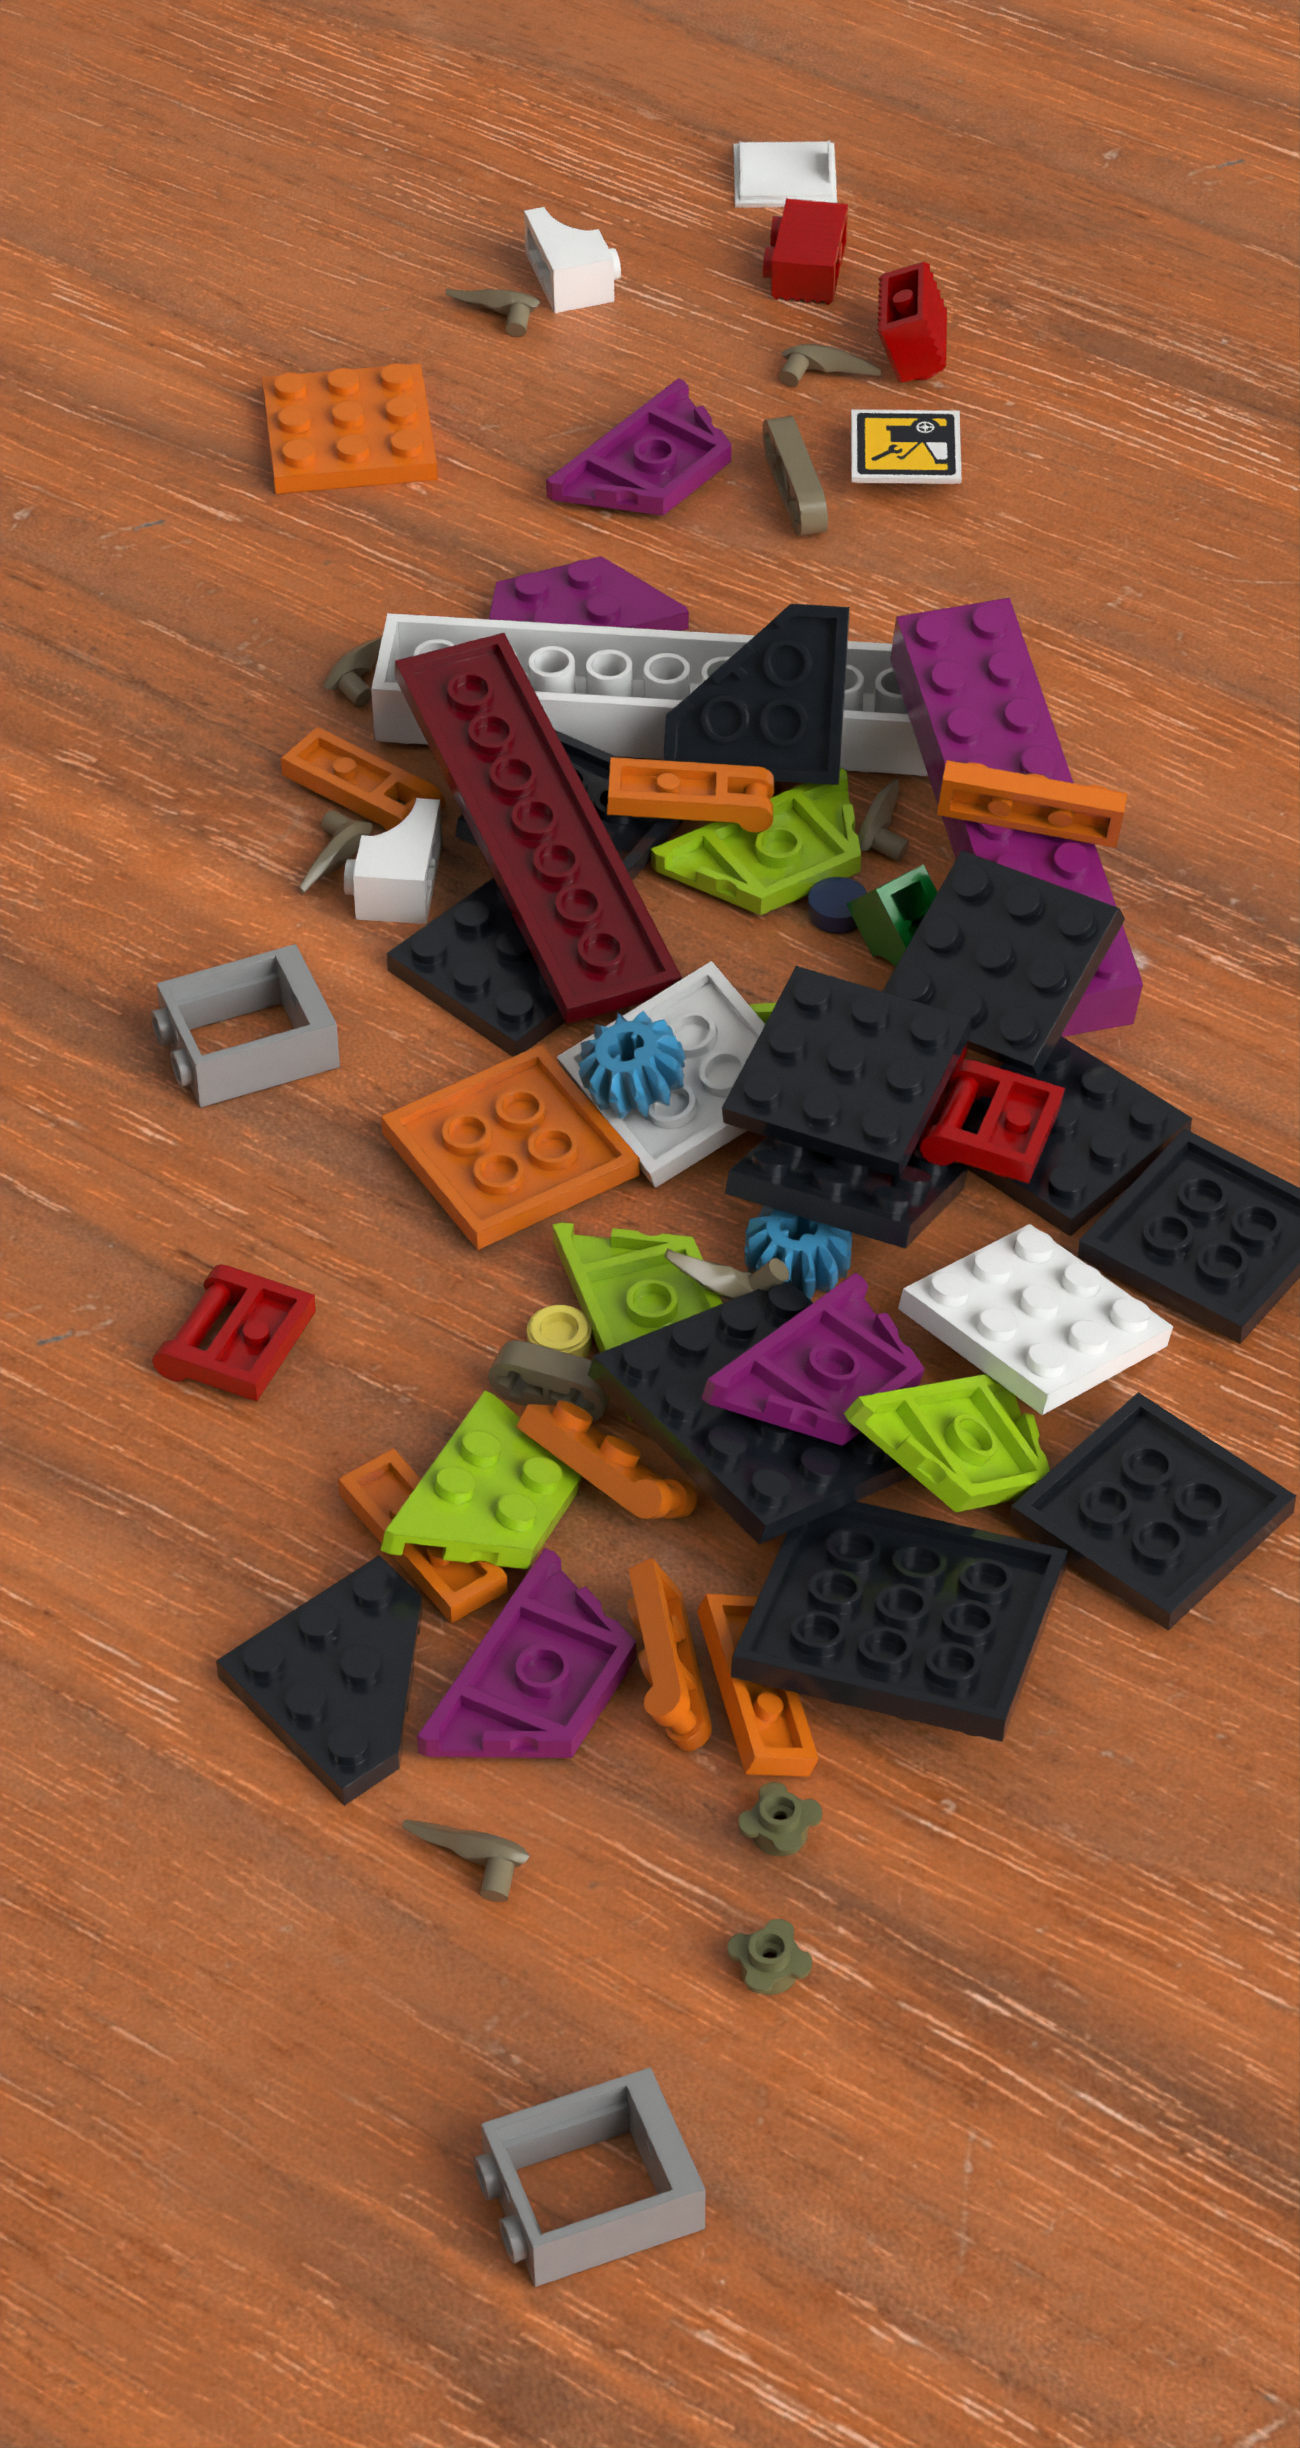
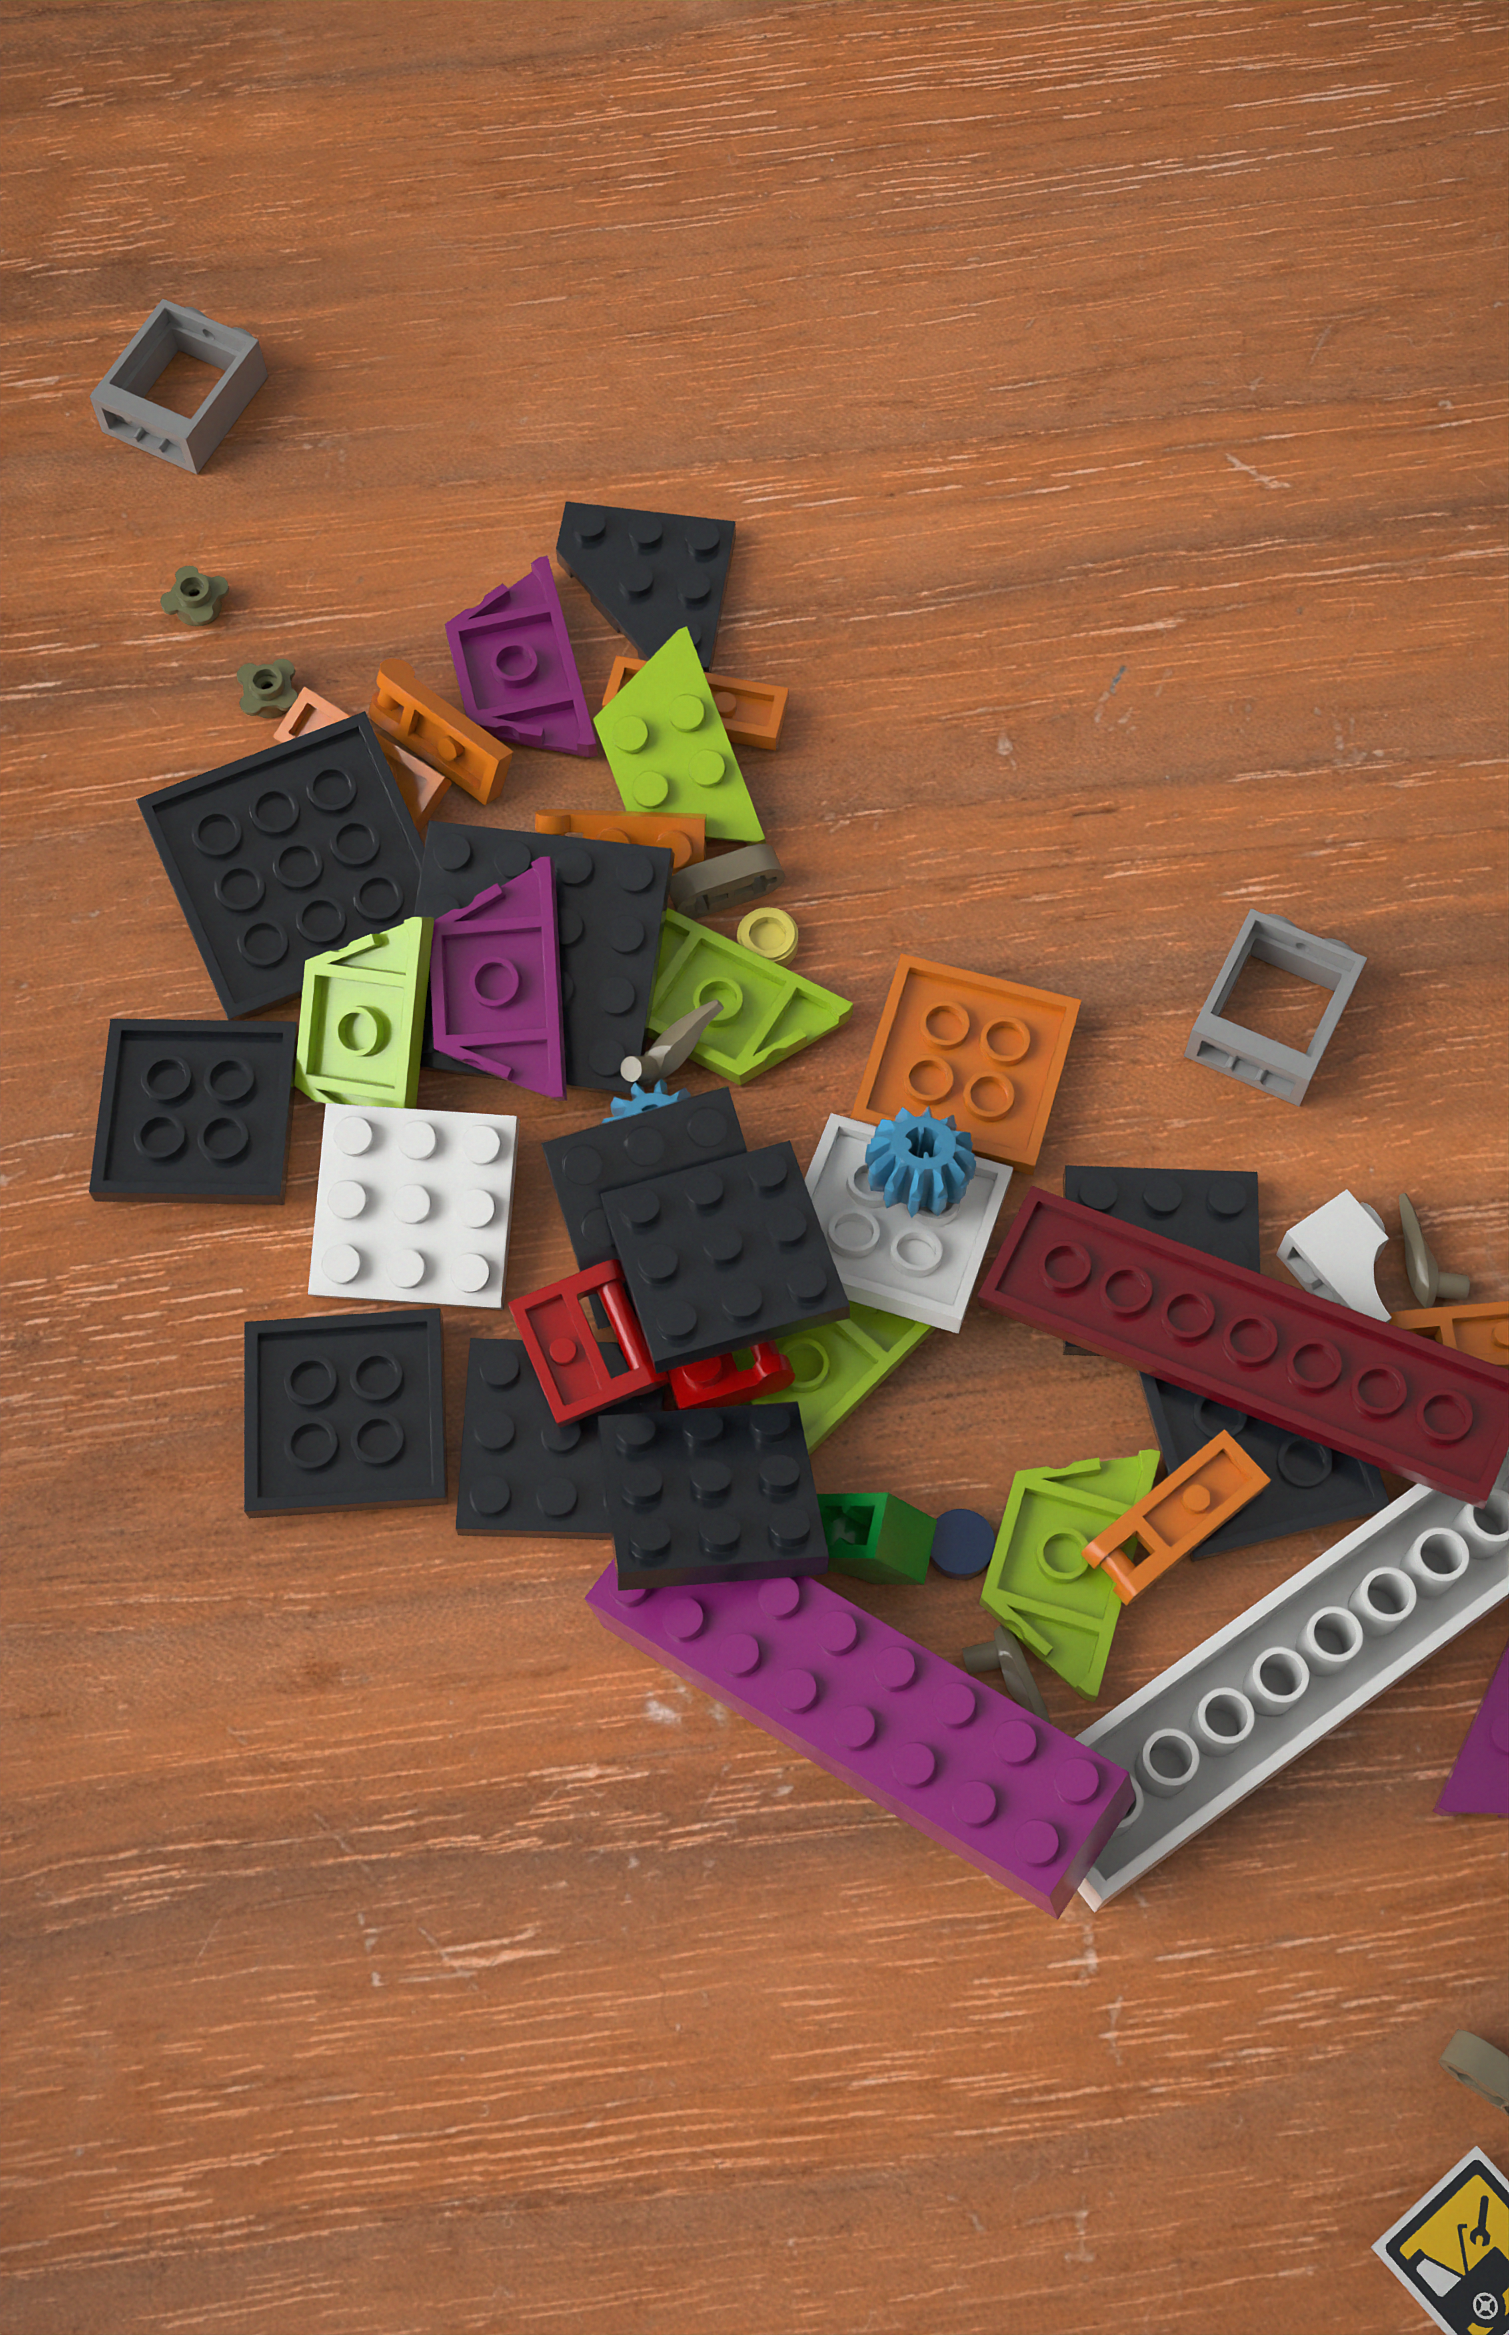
camera: 140 degrees right, 20 degrees up
(250, 1341) = (973, 764): red plate -> none
(489, 1850) = (449, 533): dark tan bar -> none
(772, 701) = (1185, 1643): black plate -> none
(1031, 803) = (801, 1641): orange plate -> none

